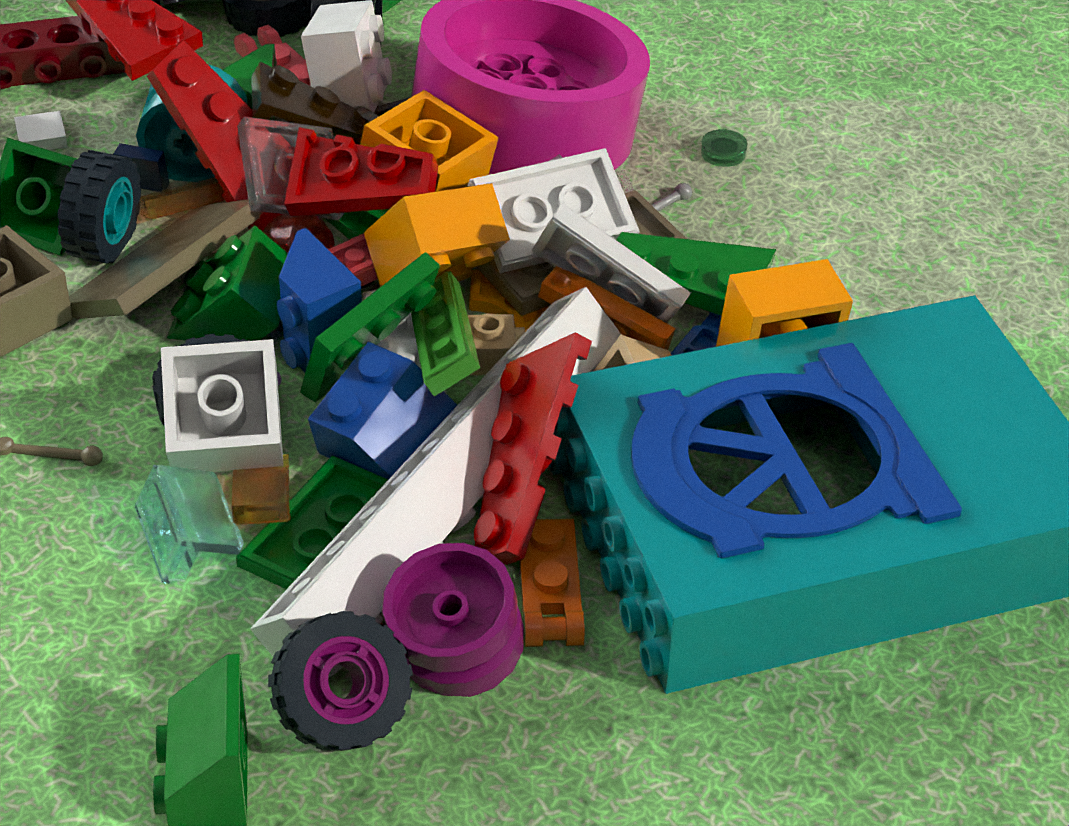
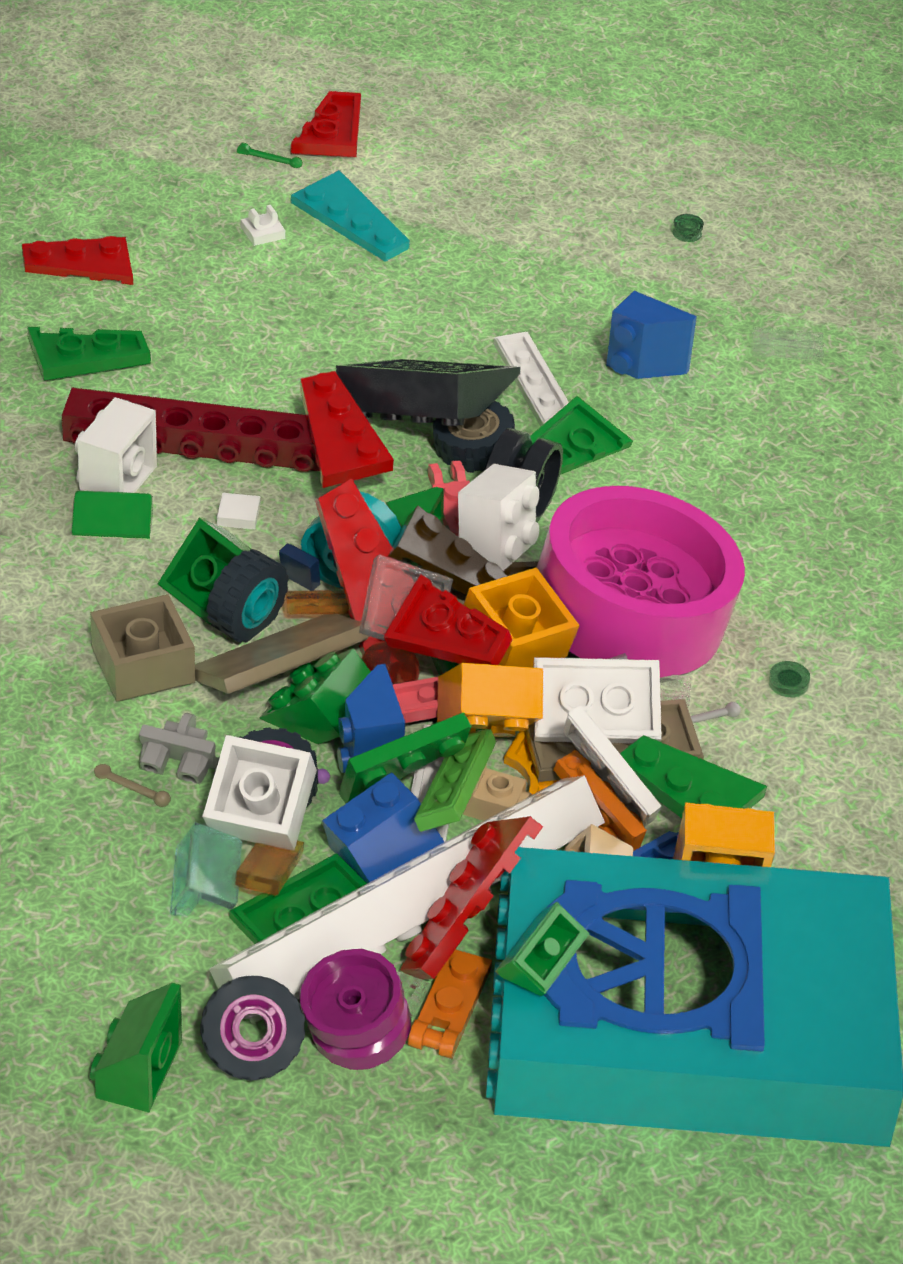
camera: 20 degrees right, 0 degrees up
(89, 387) = (179, 742): none -> light grey hips
(659, 478) = (543, 950): none -> green slope

